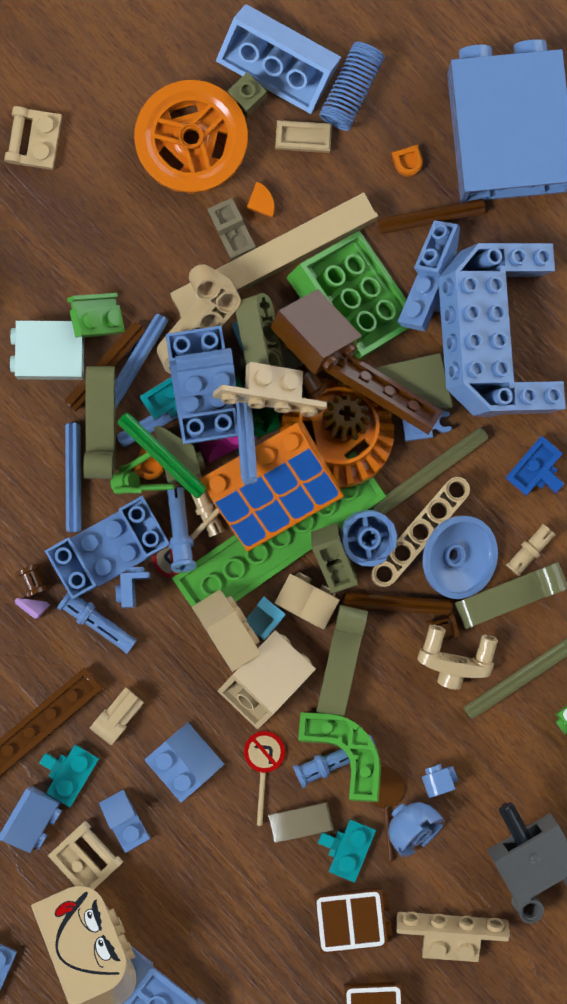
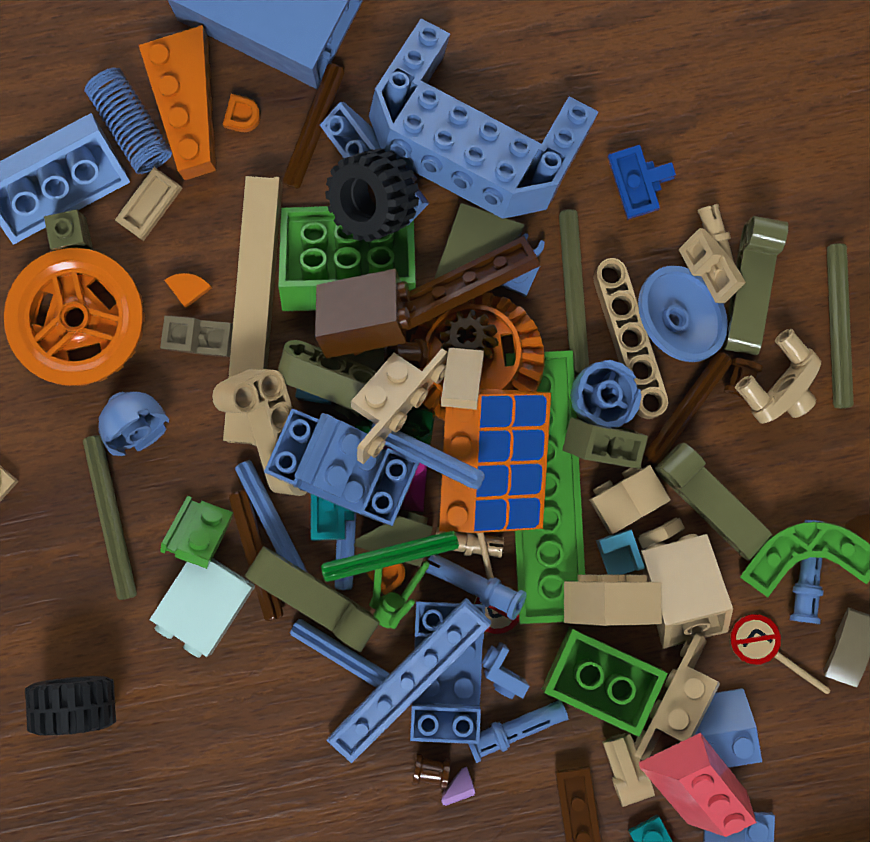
camera: 55 degrees left, 0 degrees up
(68, 248) = (109, 517): none -> olive axle
(84, 524) = (409, 680): none -> medium blue tile
(137, 769) = (700, 786): none -> coral slope
(143, 222) = (130, 422): none -> medium blue cylinder
(168, 660) = (604, 681): none -> bright green brick
(187, 723) = (684, 702): none -> tan bracket
(297, 638) = (661, 533): none -> tan tile
(313, 427) = (462, 378): none -> tan tile
(396, 110) = (182, 90): none -> orange wedge
(404, 287) = (391, 187): none -> black tyre
(510, 555) = (711, 262): none -> tan slope

